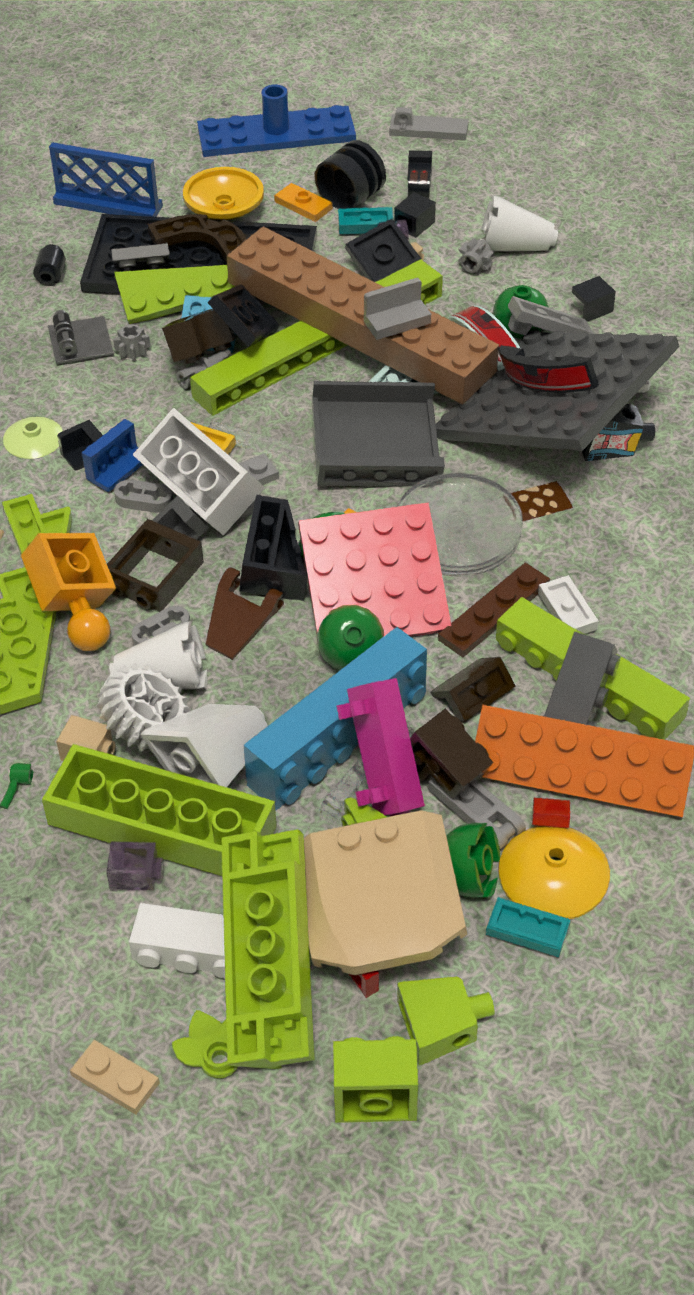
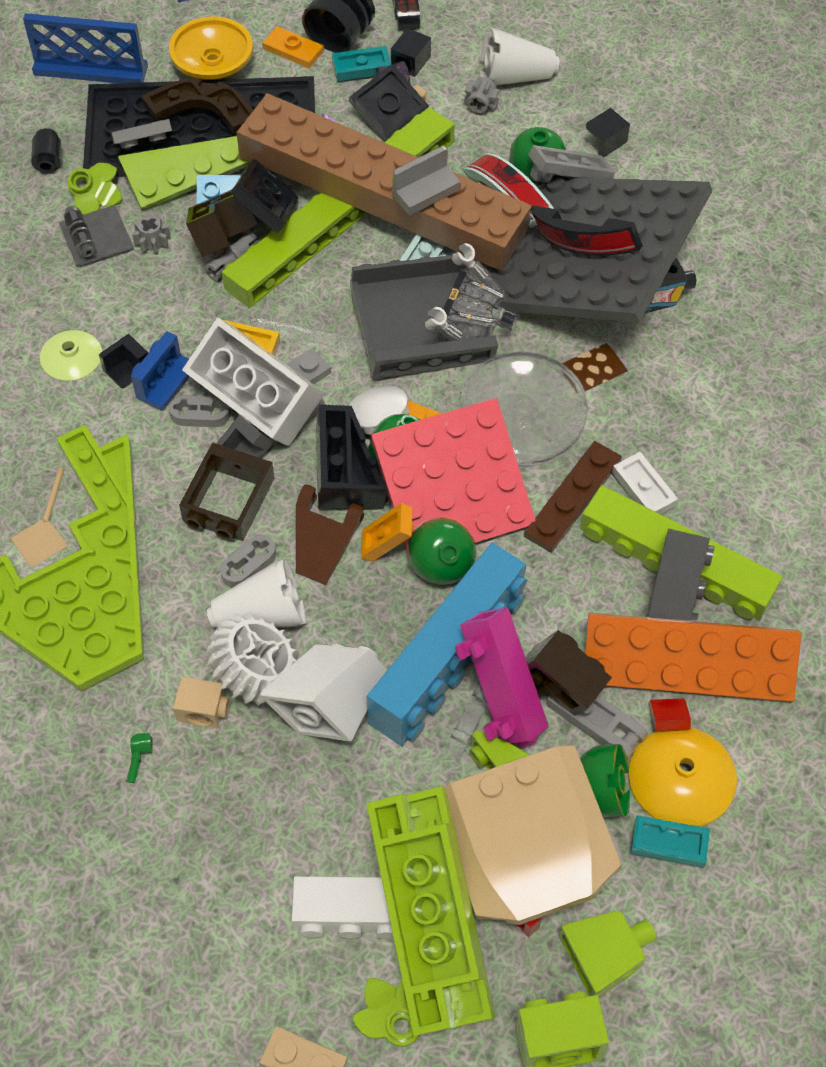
camera: 10 degrees left, 10 degrees up
(72, 576) = (148, 519): light orange brick -> none
(90, 301) = (98, 190): none -> lime plate
(133, 866) = (268, 823): brick -> none
(142, 803) = (287, 770): lime brick -> none
(299, 615) = (387, 532): none -> light orange plate
(316, 504) = (378, 403): none -> white dish
(426, 427) = (473, 303): none -> clear torso
(475, 686) = (570, 585): dark brown panel -> none

